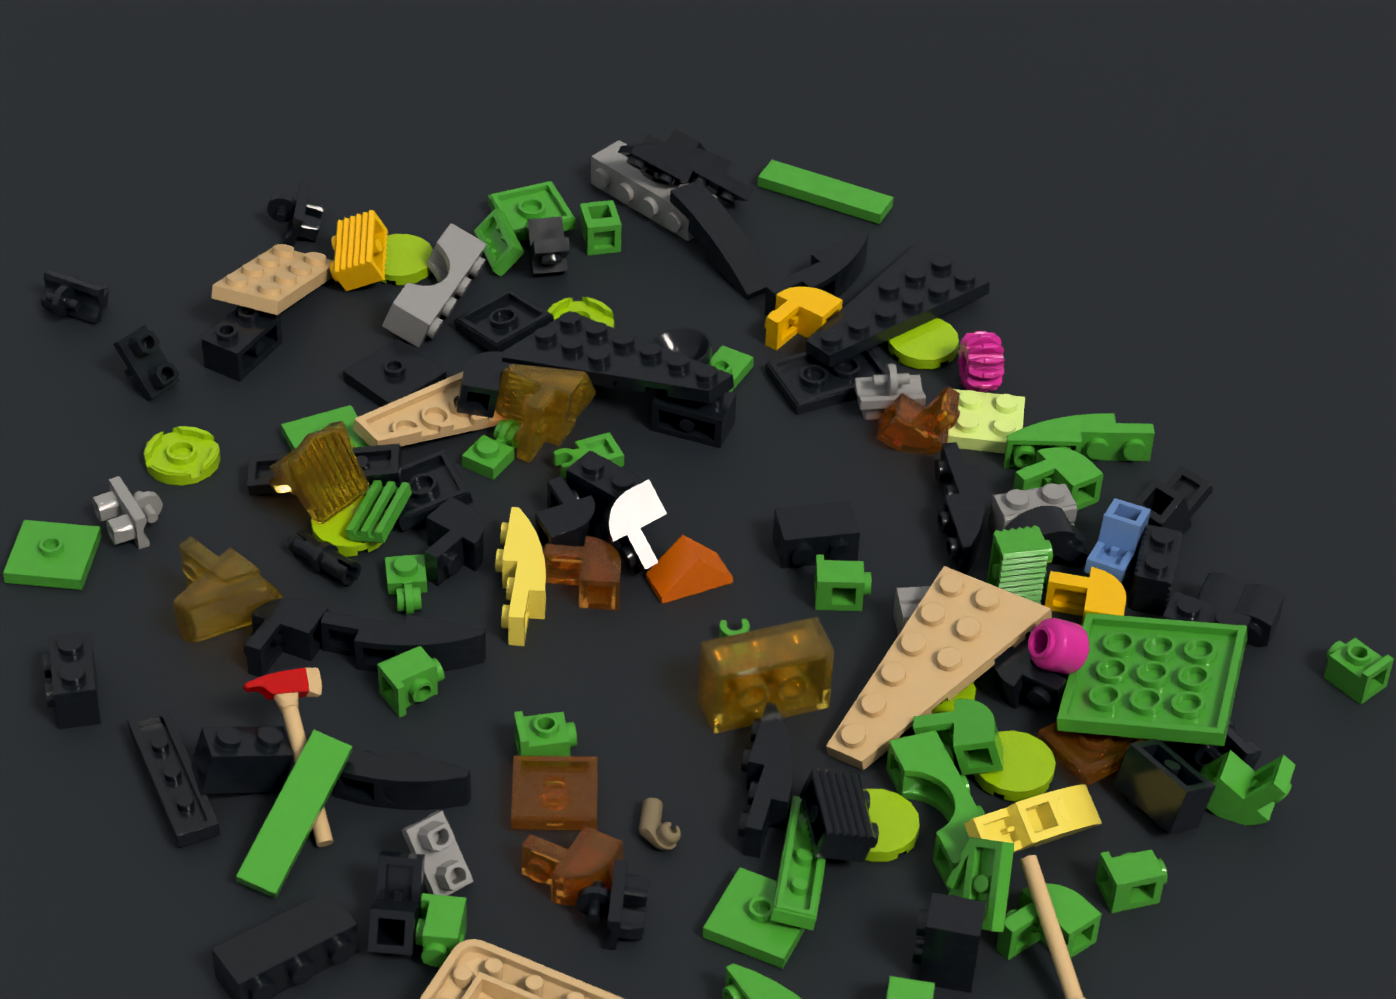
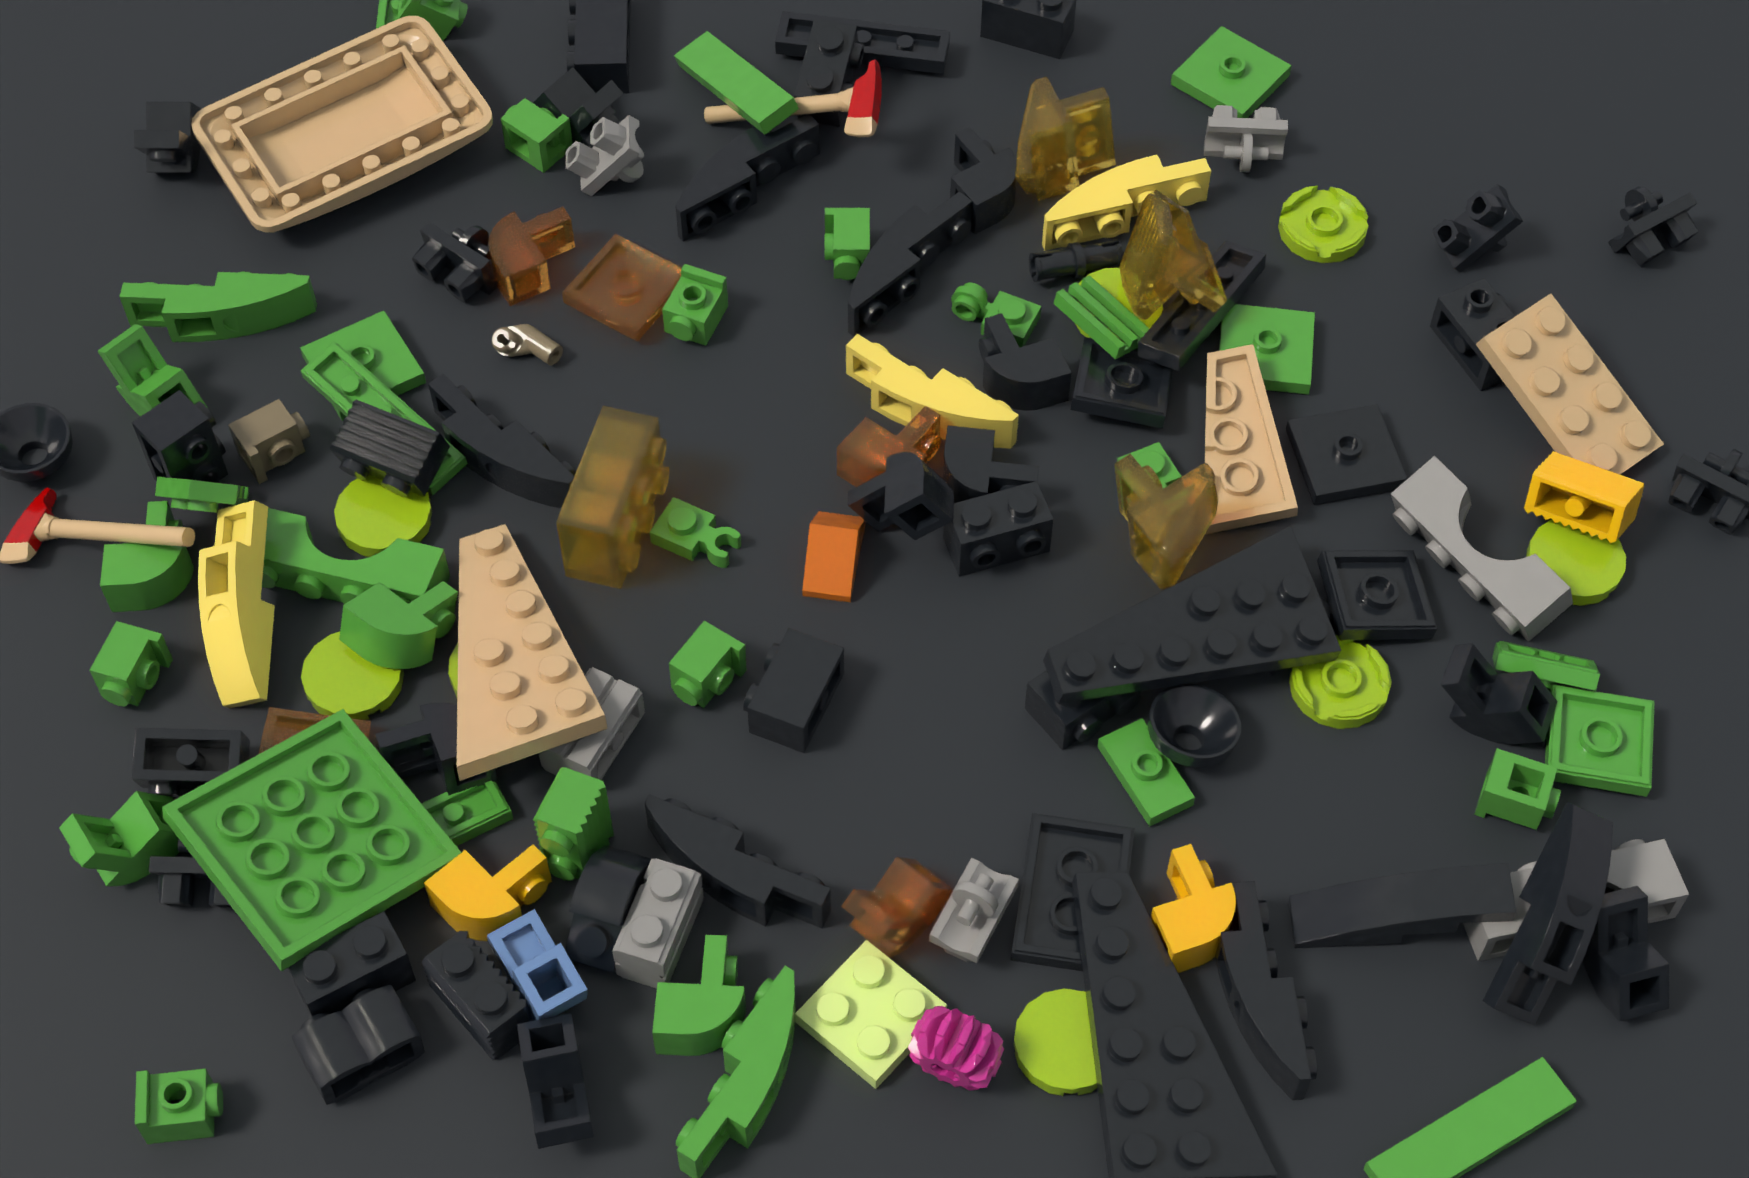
camera: 125 degrees right, 15 degrees up
(276, 561) = (1109, 200): none -> light yellow slope
(481, 384) = (1244, 492): black brick -> none
(601, 444) = (1078, 557): bright green plate -> none
(883, 919) = (269, 438): none -> dark tan brick
(1058, 646) = (409, 749): dark pink head -> none

